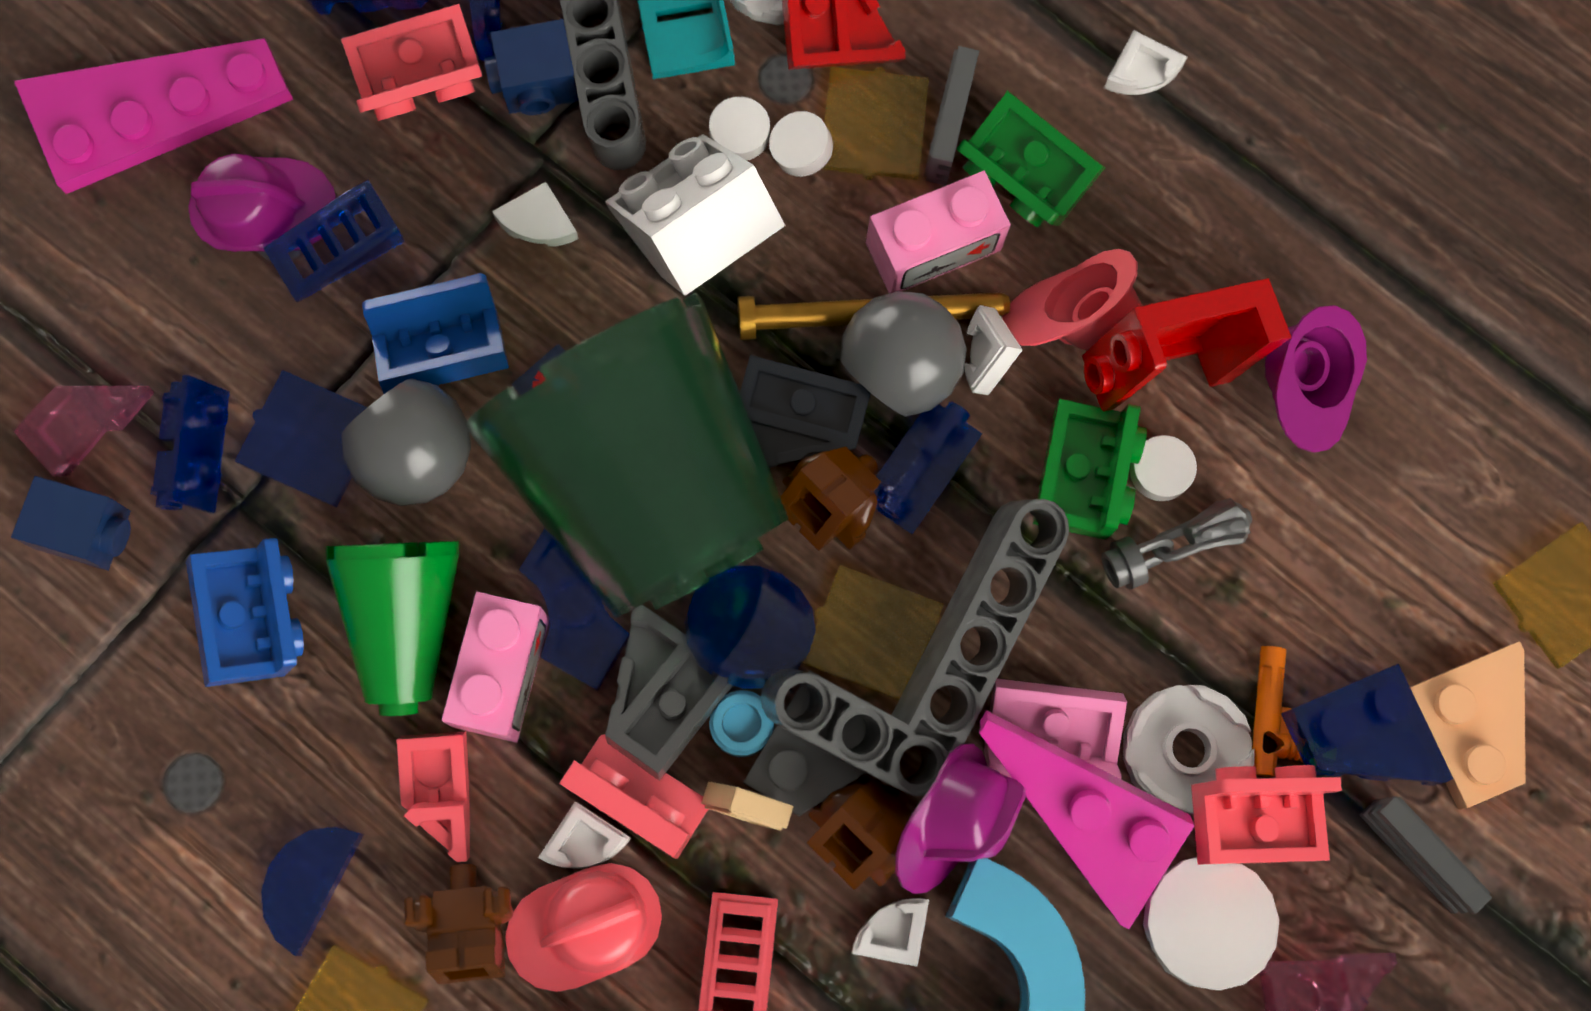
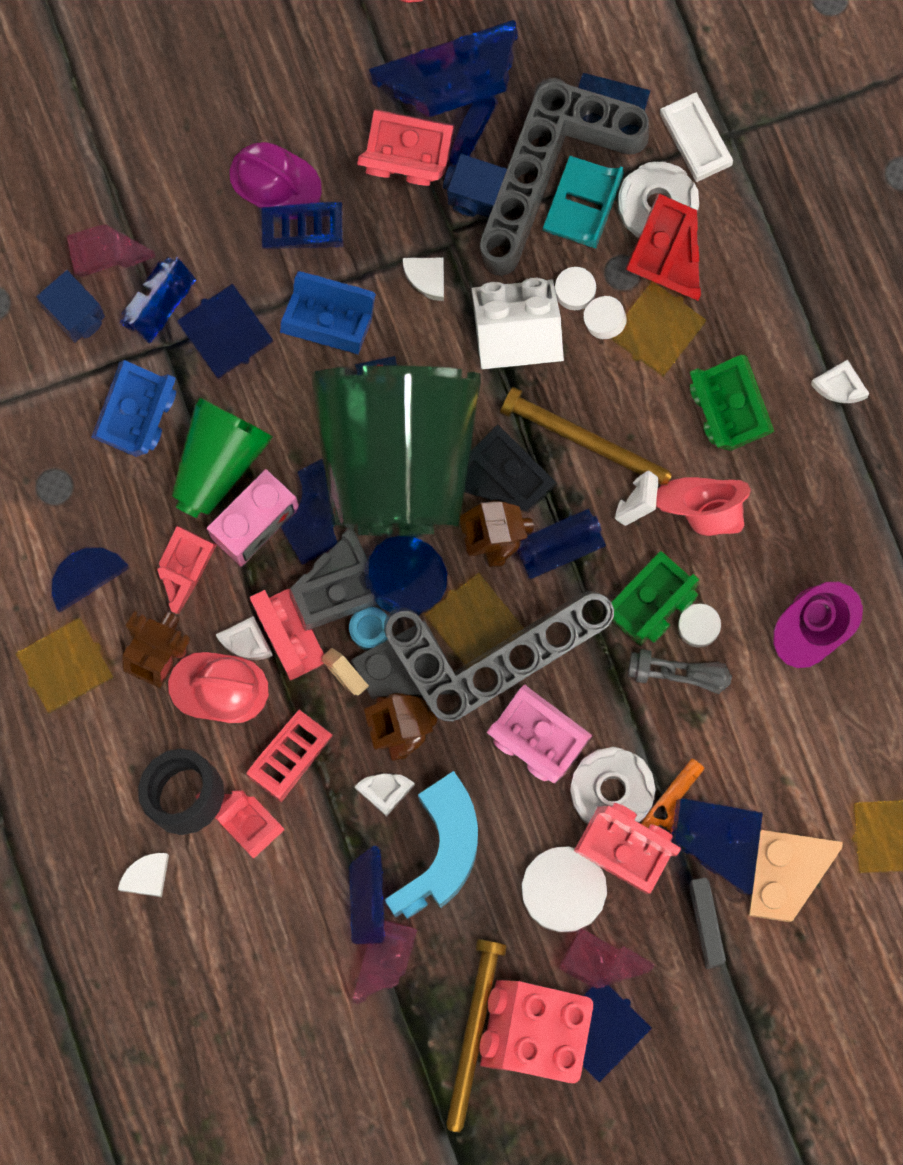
camera: 40 degrees right, 0 degrees up
(139, 109) = (239, 86): dark pink wing -> none
(408, 444) = (276, 366): dark grey helmet -> none
(905, 351) = (585, 472): dark grey helmet -> none
(937, 232) = (649, 414): bright pink brick -> none
(951, 115) = (702, 349): dark grey tile -> none
(959, 819) = (451, 742): magenta piece -> none
(1106, 826) = (533, 796): dark pink wing -> none
(1222, 326) = (779, 558): red panel -> none

